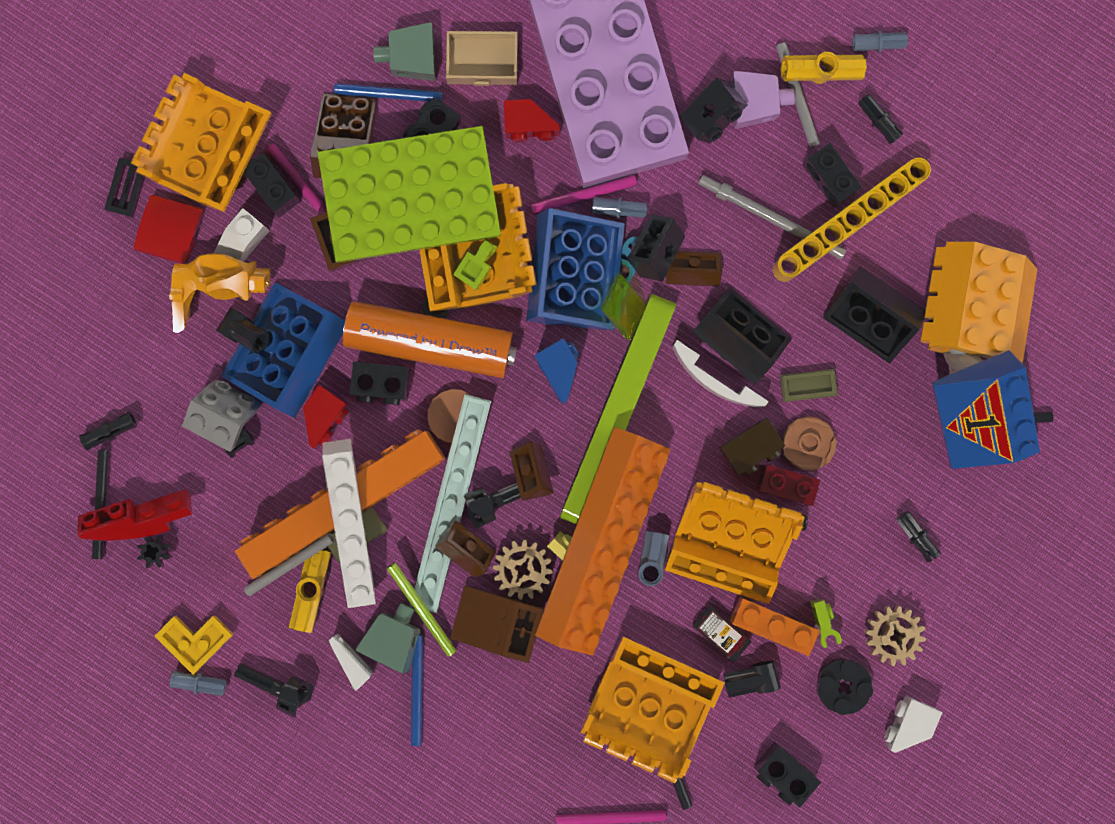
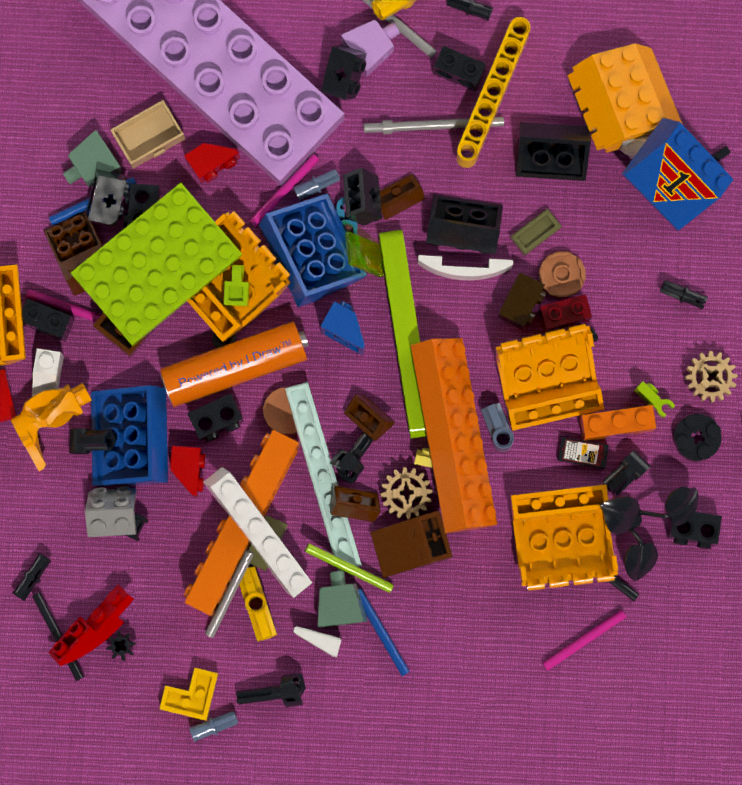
camera: 30 degrees left, 5 degrees down
(407, 83) = (103, 185): none -> black brick
(725, 725) = (624, 515): none -> black plant

